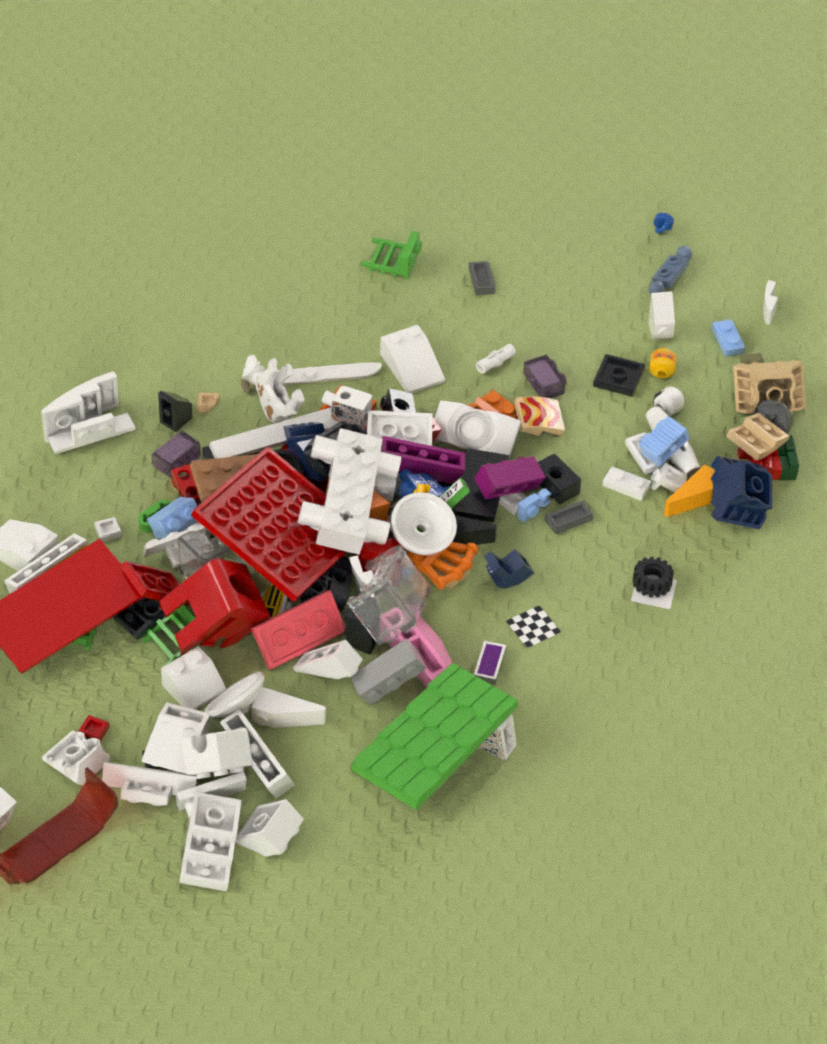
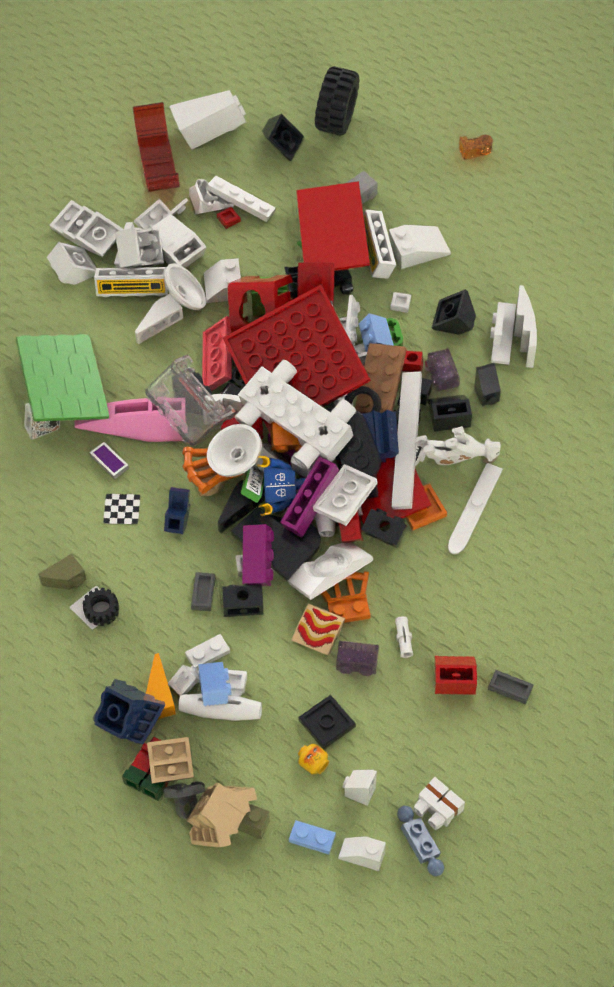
camera: 125 degrees right, 10 degrees up
(63, 722) = (240, 198): none -> white plate
(97, 475) = (455, 314): none -> black slope
(207, 401) = (491, 420): tan tile -> none
(222, 420) = (450, 412): none -> black slope
(330, 661) = (166, 351): white slope -> none
(349, 405) = (395, 477): white torso -> none
(388, 671) = (134, 380): light grey brick -> none
(405, 260) = (567, 639): bright green plate -> none
(411, 359) = (440, 574): white slope -> none
(504, 306) = (455, 675): none -> red slope
(530, 506) = (227, 565): light blue plate -> none
(630, 269) = (439, 802): none -> white hips
(645, 621) = (63, 574): none -> olive slope
(663, 222) = (486, 875): blue tile -> none
(669, 400) = (266, 733): white head -> none
(713, 296) = (363, 852): none -> white slope
(770, 302) = (324, 892): white slope -> none

